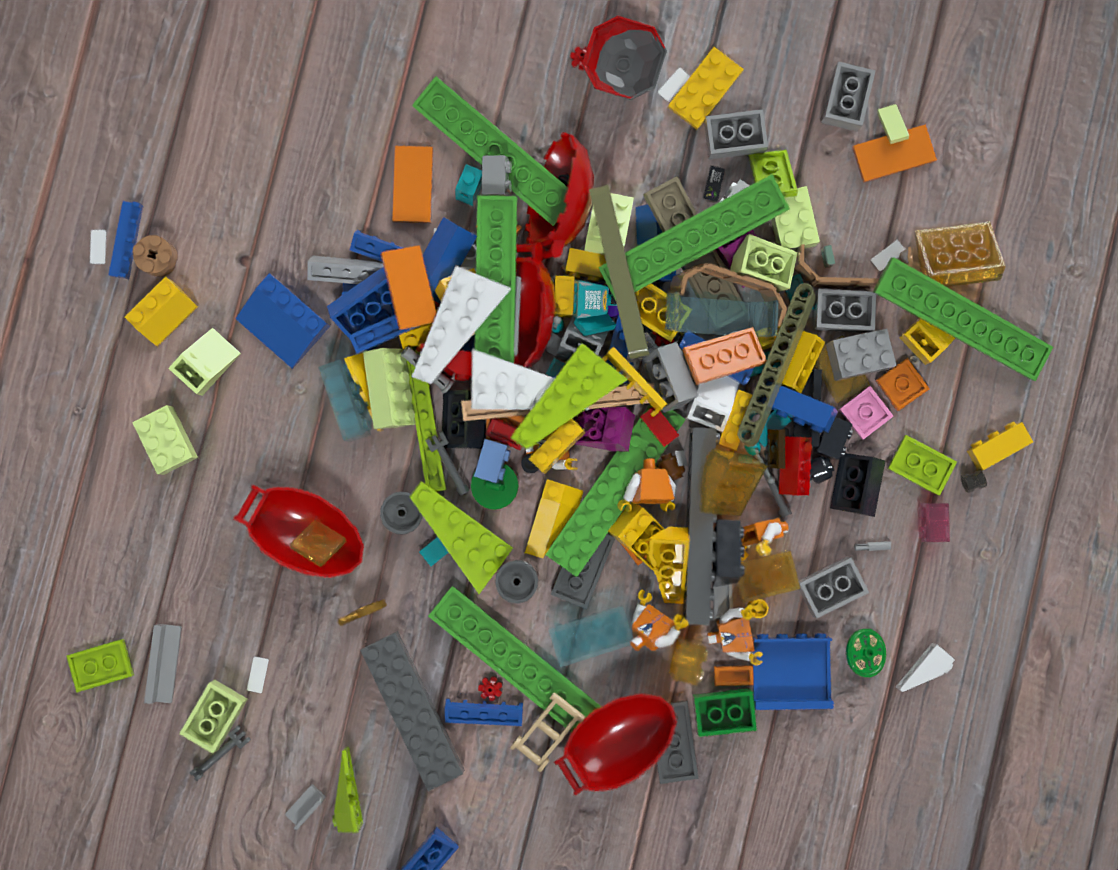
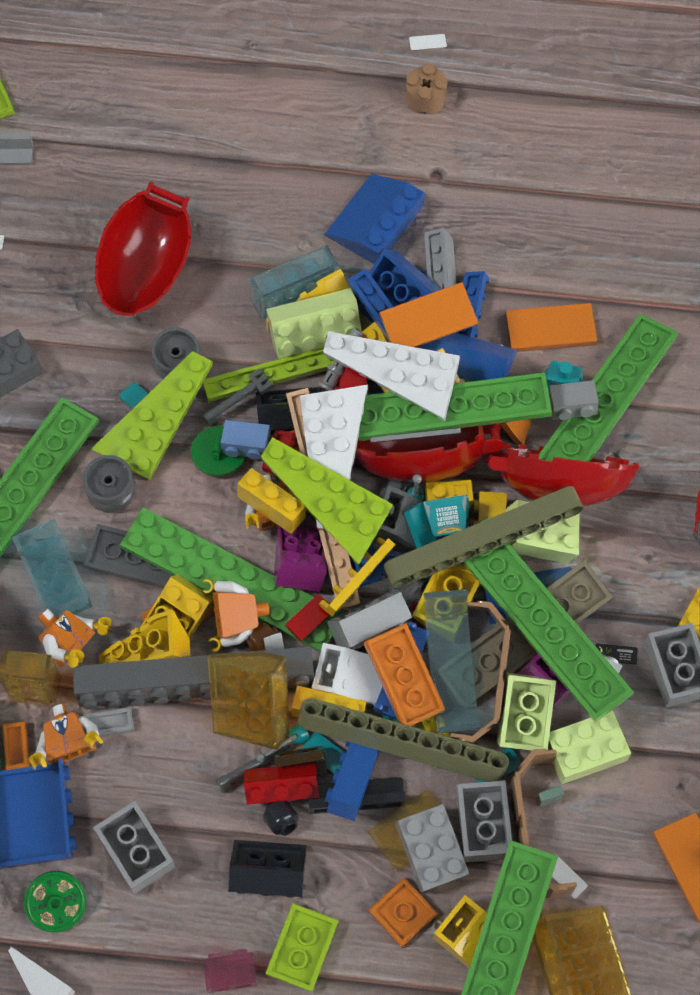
camera: 80 degrees right, 20 degrees down
(125, 240) = (447, 63): blue hinge -> none
(161, 311) = (368, 102): yellow slope -> none
(165, 440) = (230, 122): yellowish green brick -> none
(204, 361) = (318, 147): yellowish green slope -> none
(317, 543) = (133, 272): clear yellow tile -> none
(361, 612) = (60, 326): pearl gold piece -> none
(554, 512) = (200, 514): yellow wedge -> none
(728, 552) = (164, 706): black slope -> none
(760, 609) = (99, 758): yellow wheel -> none
(763, 533) = (193, 751): torso -> none
(768, 576) = (140, 764): clear yellow brick -> none
(779, 166) = (641, 716): lime tile -> none
(803, 361) = (412, 776): yellow brick -> none
(833, 442) = (322, 830): black brick -> none
(866, 412) = (360, 868): bright pink plate -> none
(873, 546) = (192, 901): light grey pin -> none

